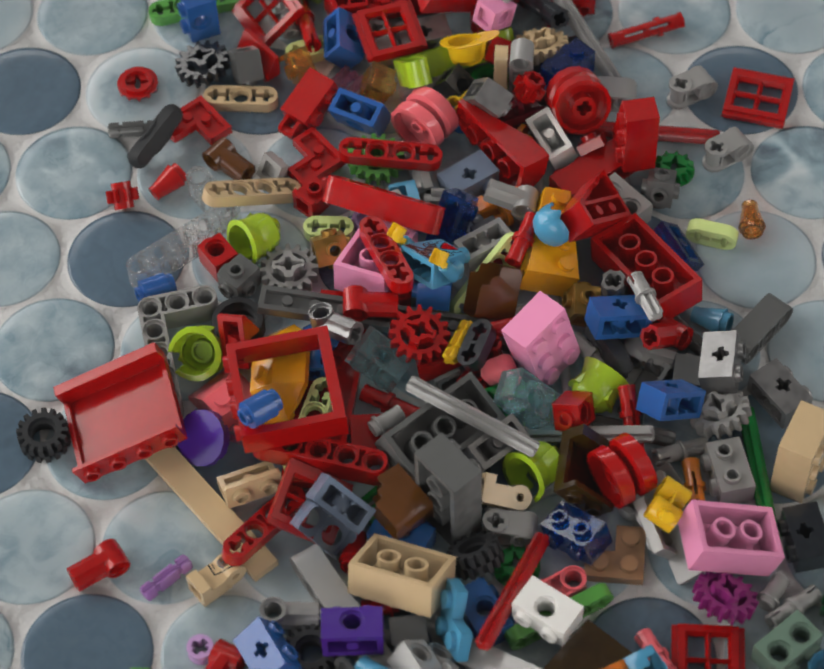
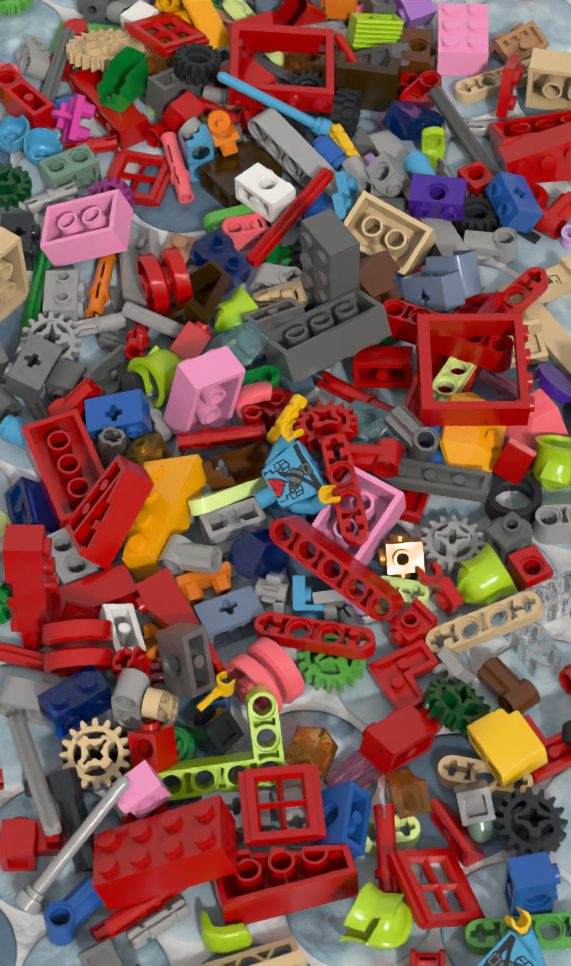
camera: 170 degrees left, 5 degrees down
(224, 98) = (506, 746): none -> yellow piece
(259, 408) = (501, 321): blue brick -> none
(264, 128) = (454, 704): none -> dark green gear
(291, 224) = (444, 592): none -> red plate
(359, 112) = (339, 710): blue brick -> none
(386, 421) = (382, 347): light grey pin -> none
(468, 48) = (185, 740): yellow piece -> none
(472, 416) = (295, 314): light grey axle -> none
(476, 345) = (274, 404): black beam -> none
(522, 241) = (193, 488): red pin -> none
(550, 227) = (164, 476): dark azure hair -> none
(645, 296) = (86, 410): light grey axle -> none
(667, 504) = (136, 240): yellow beam -> none
(670, 400) = (82, 334): blue brick -> none

